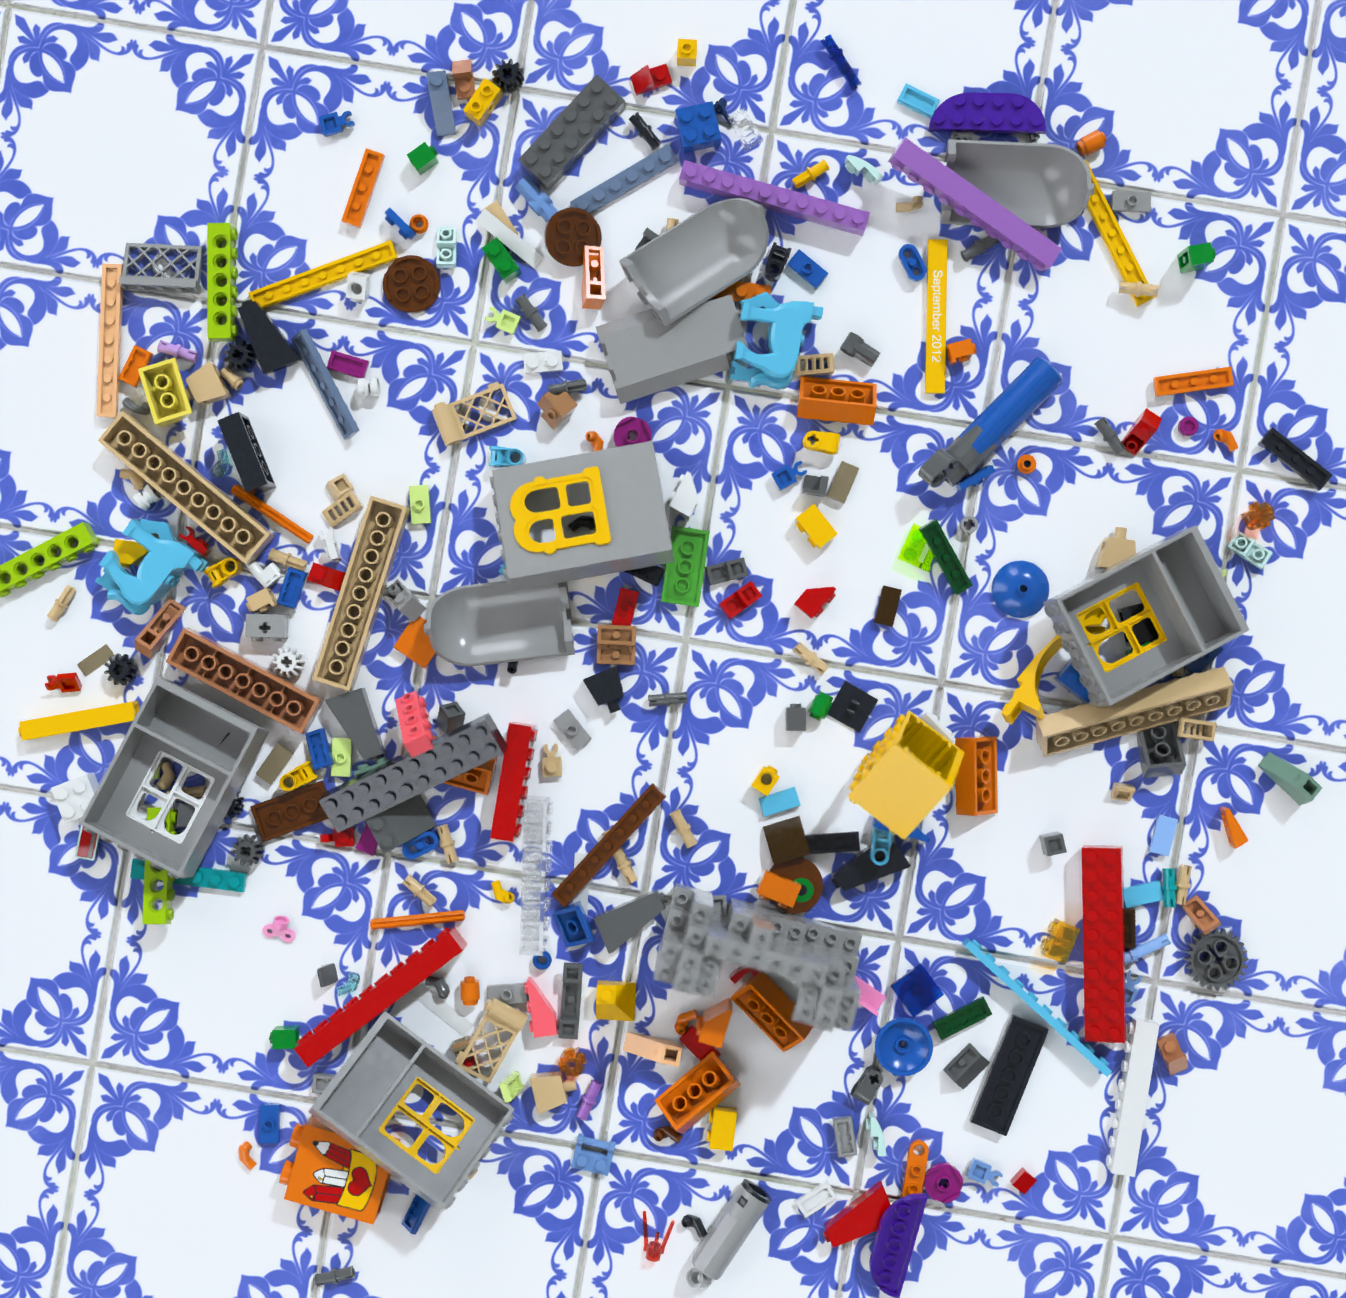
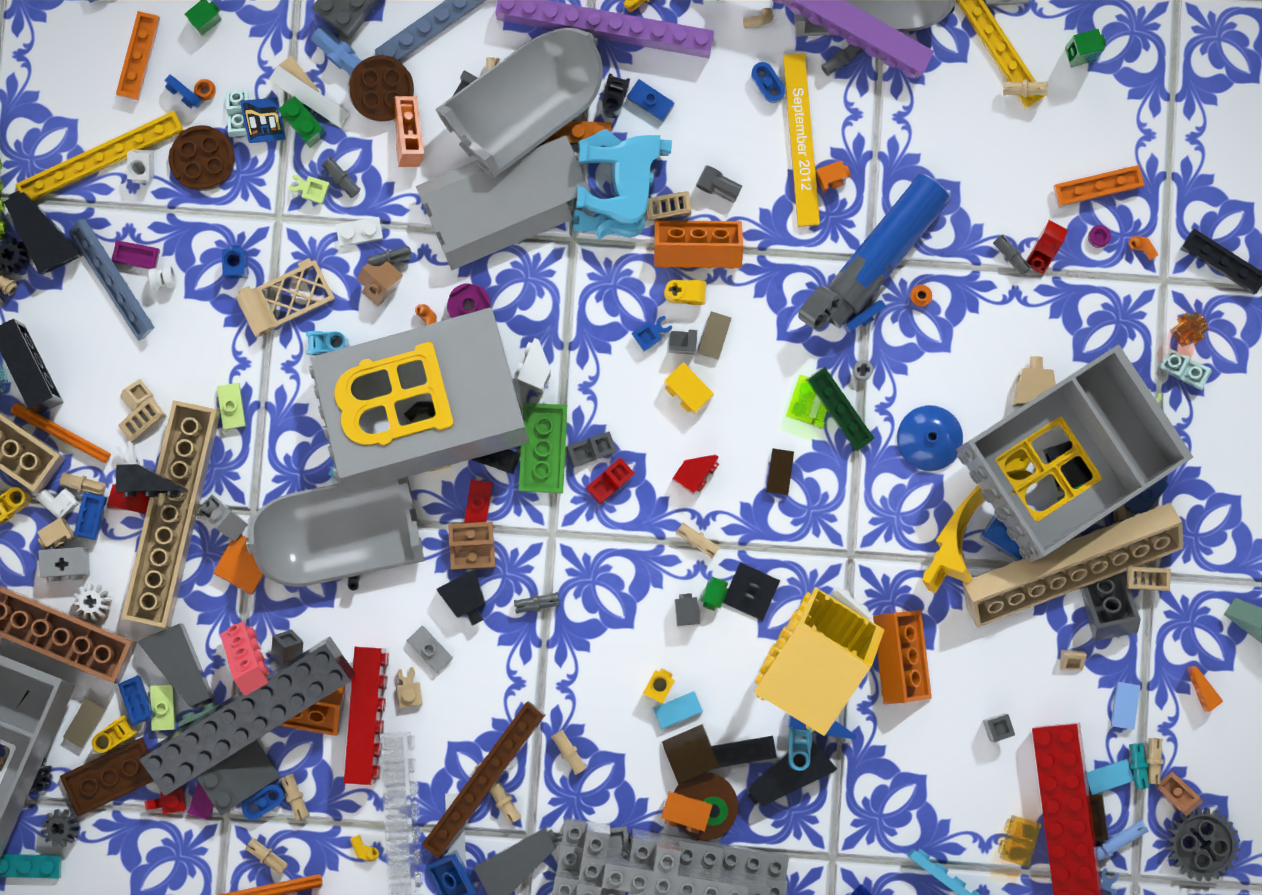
camera: 15 degrees left, 5 degrees down
(338, 562) = (138, 479): none -> black slope
(438, 386) = (238, 271): none -> blue brick
(467, 255) = (262, 120): none -> sticker

